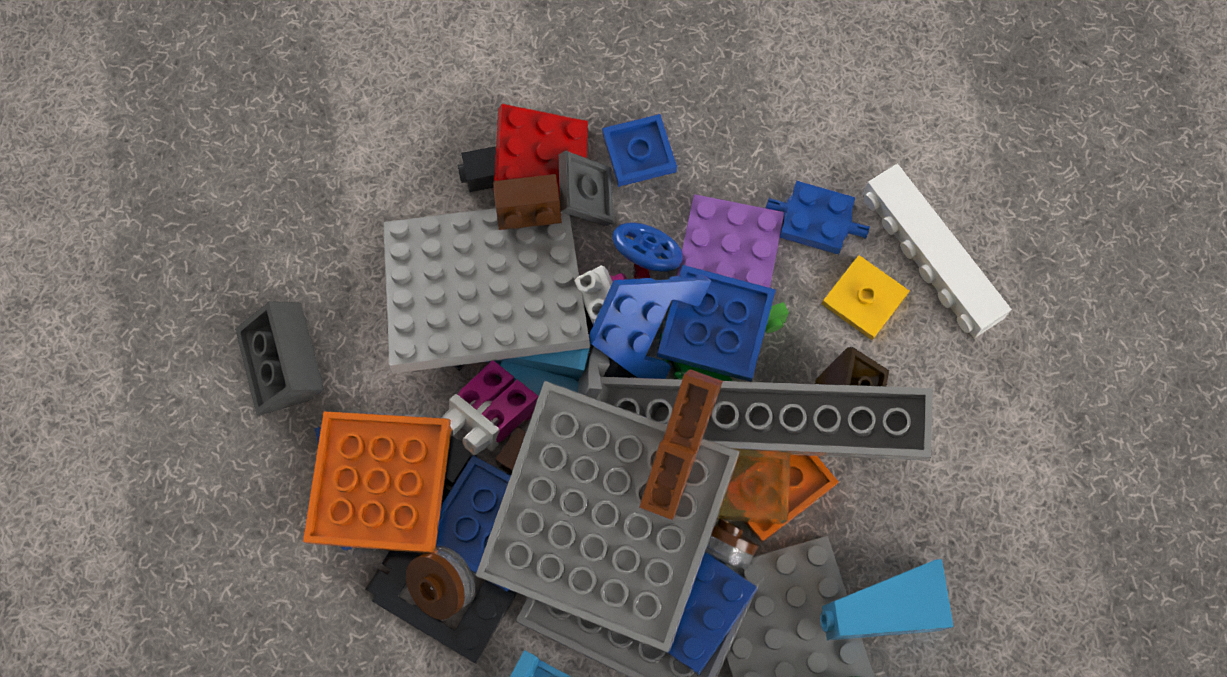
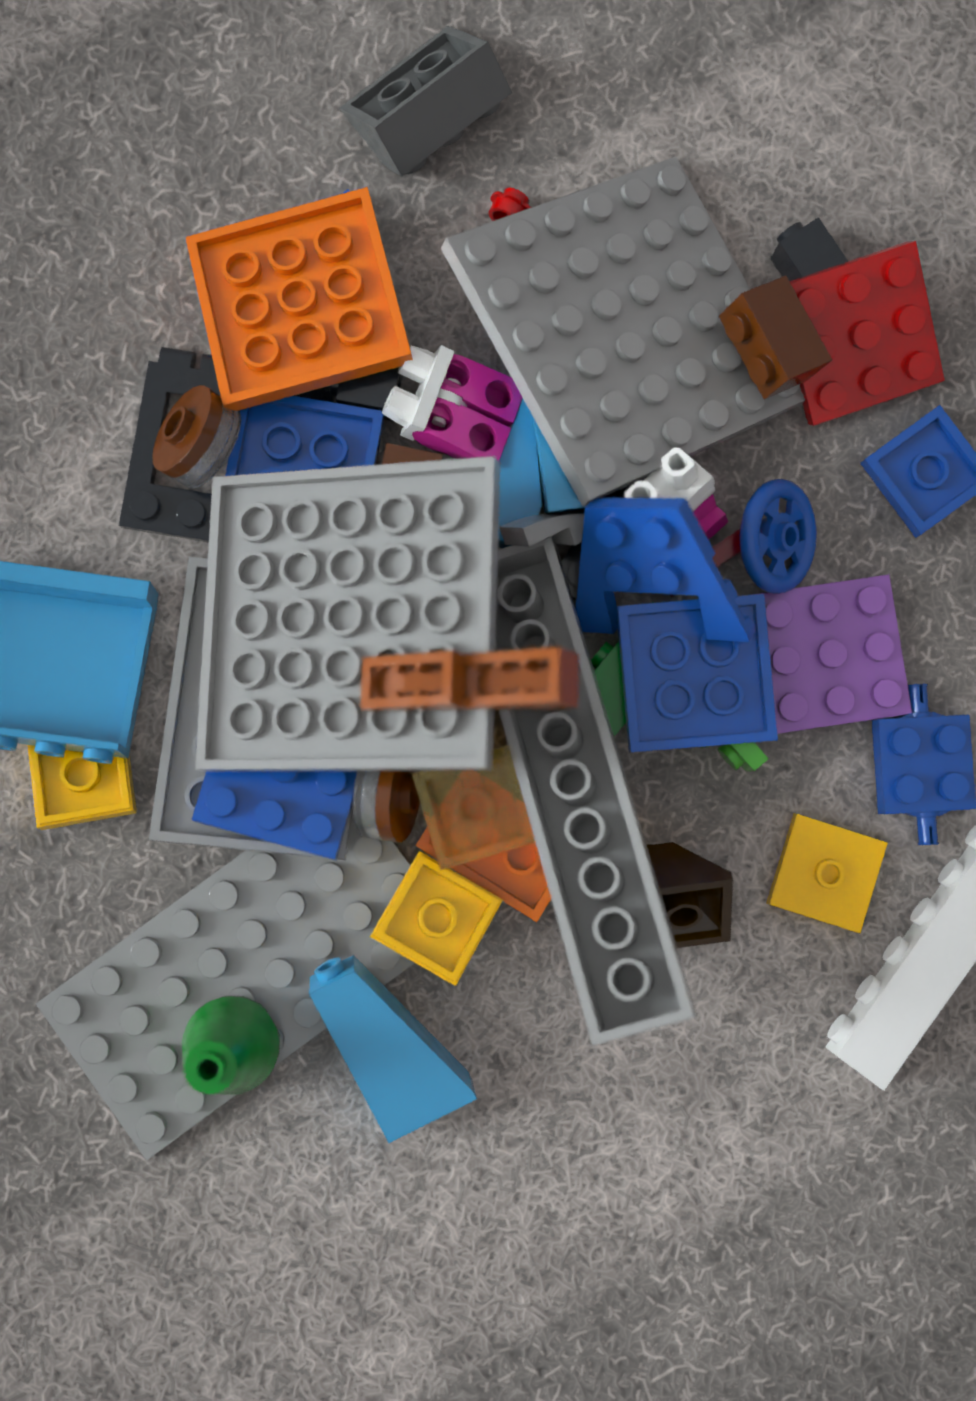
camera: 65 degrees right, 15 degrees up
(372, 332) = (507, 203): none -> red plate
(585, 188) = (834, 415): dark grey tile -> none
(815, 542) = (436, 918): none -> yellow plate

